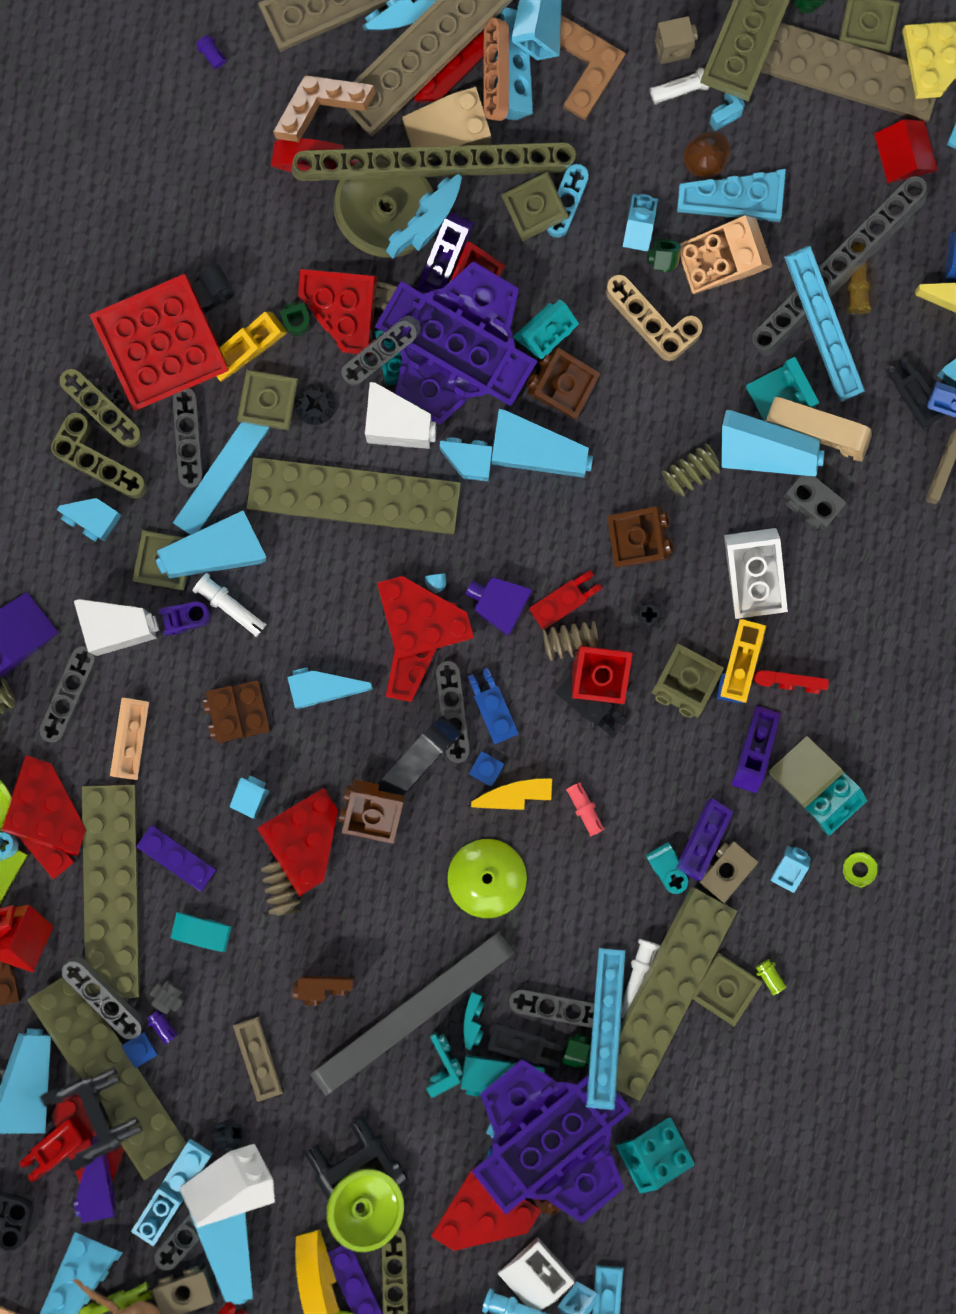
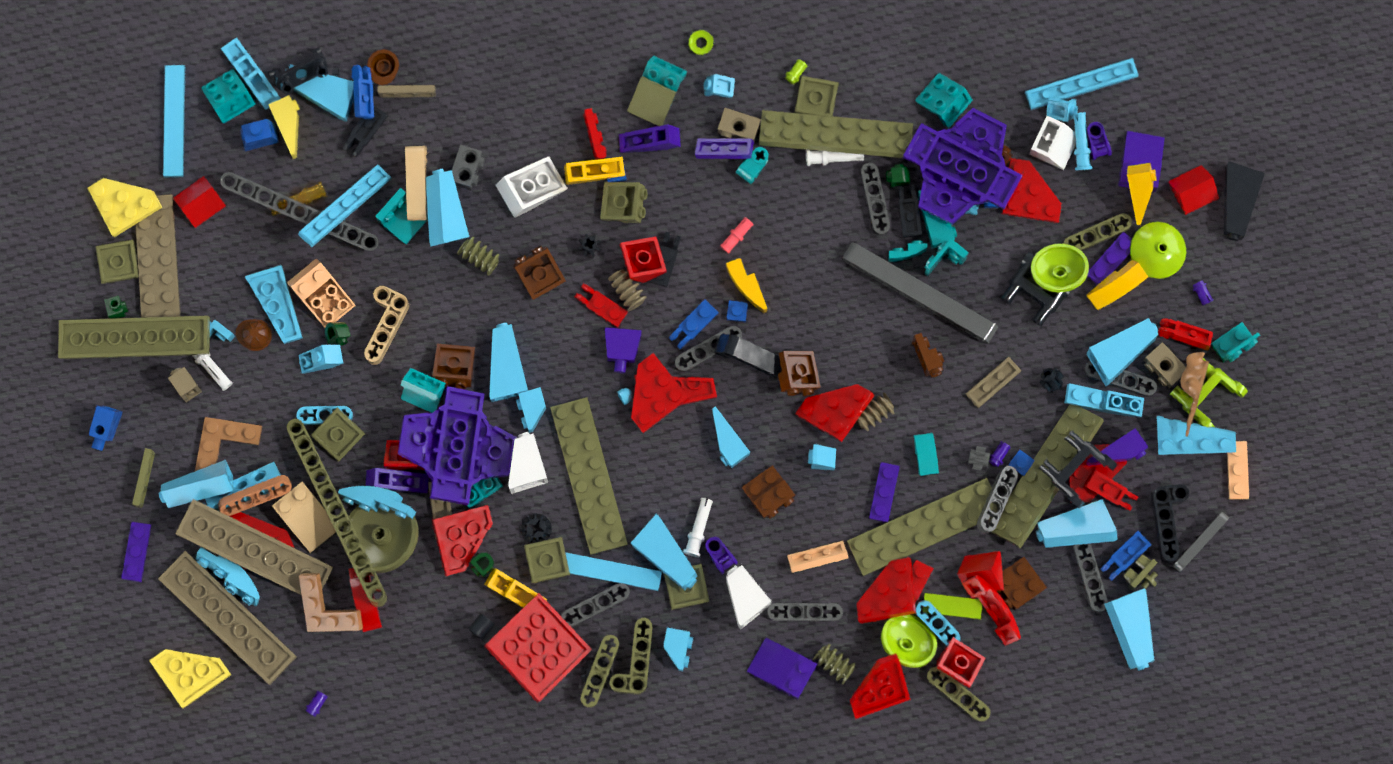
camera: 115 degrees left, 5 degrees down
(229, 1187) = (1083, 361): white slope -> none
(380, 350) = (484, 491): dark grey beam -> none
(466, 878) = (809, 294): lime dish -> none
(606, 1029) = (875, 161): medium azure tile -> none

